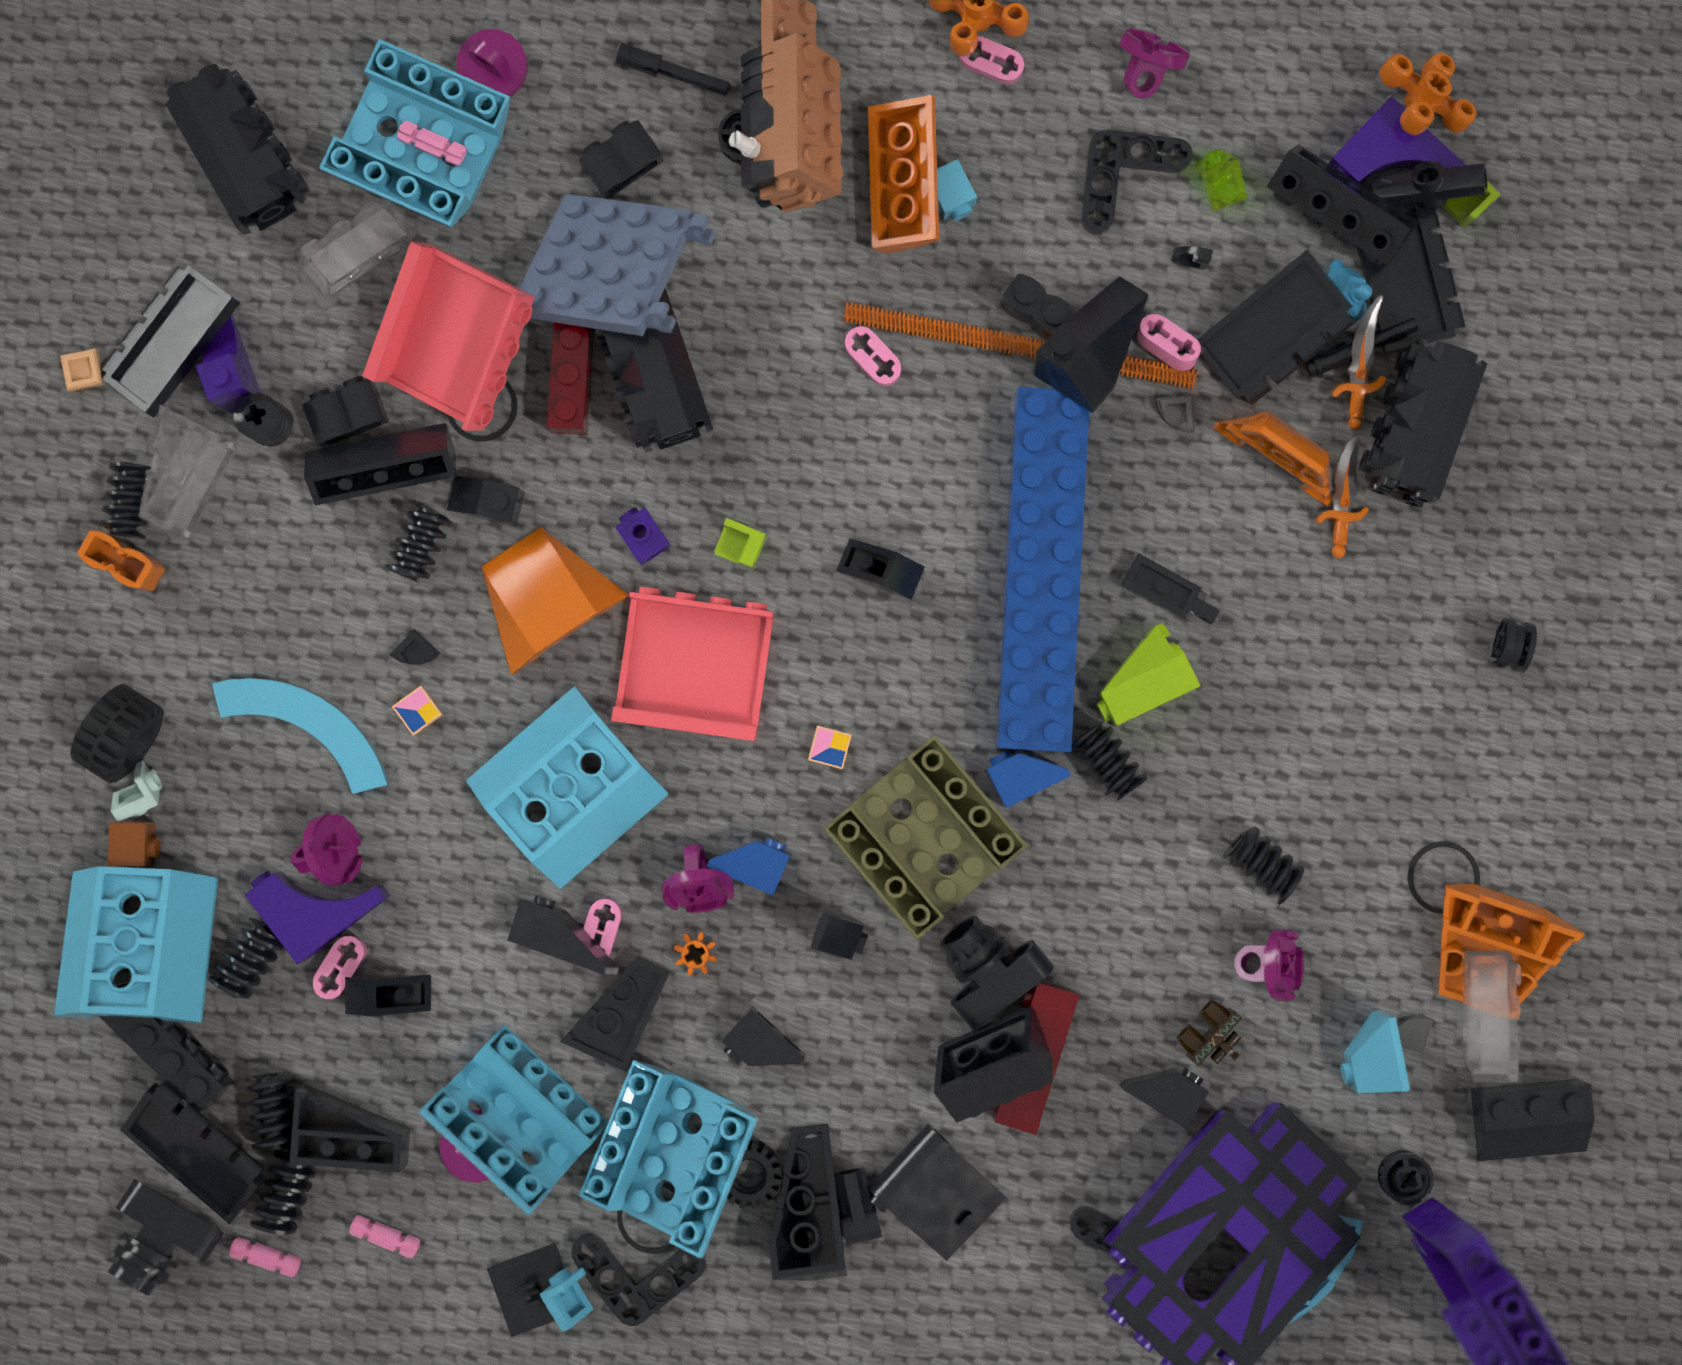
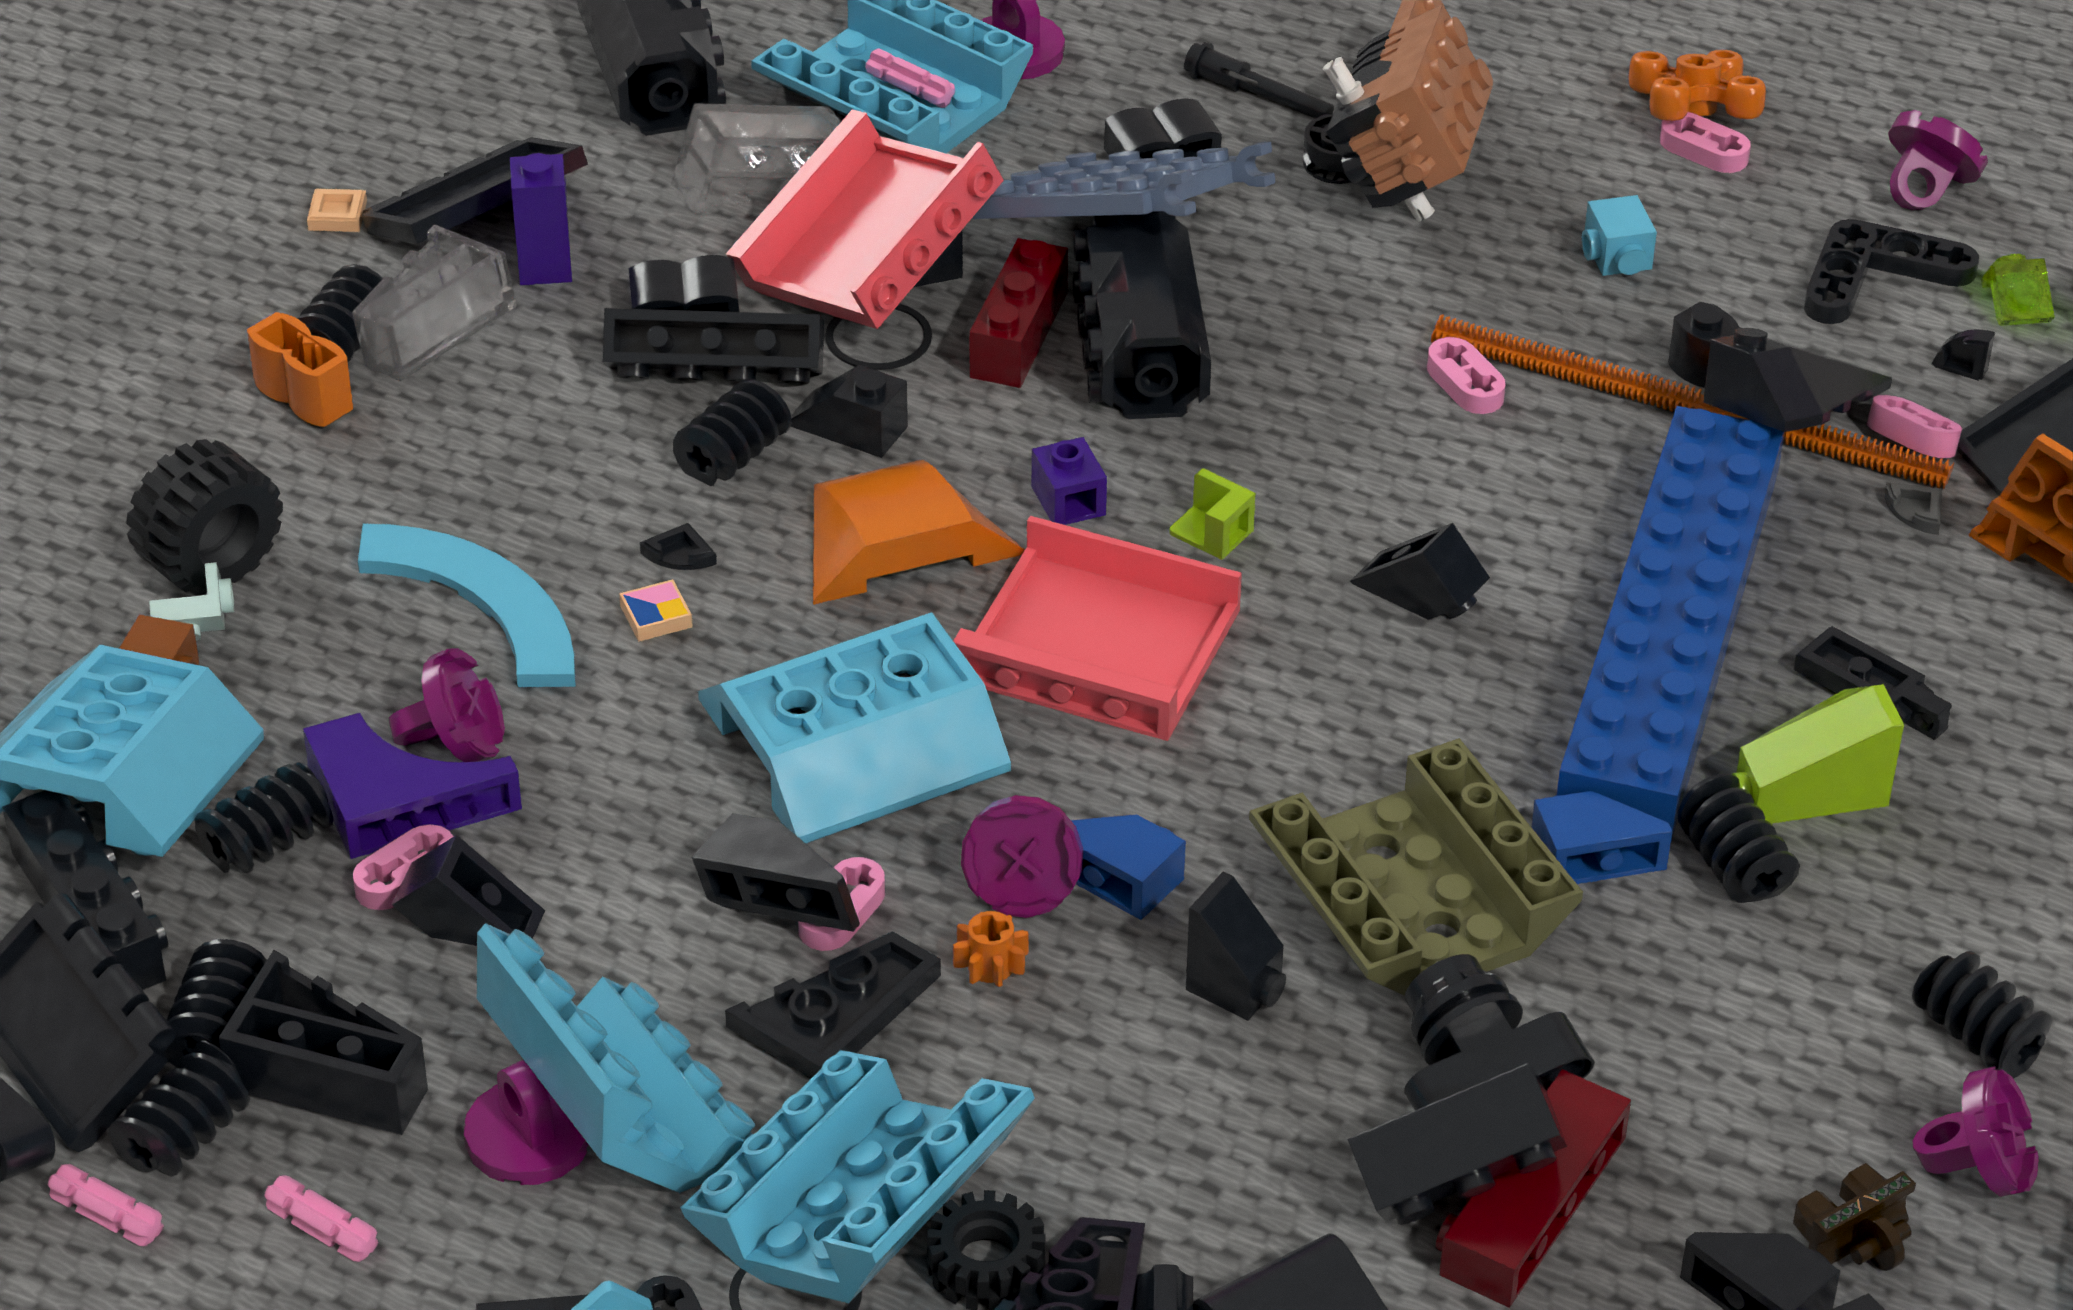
camera: 15 degrees right, 45 degrees down
(263, 419) = (570, 265): black piece -> none
(760, 1042) = (1067, 1077): black slope -> none
(829, 747) = (1284, 762): tile -> none
(903, 174) = (1553, 202): orange slope -> none

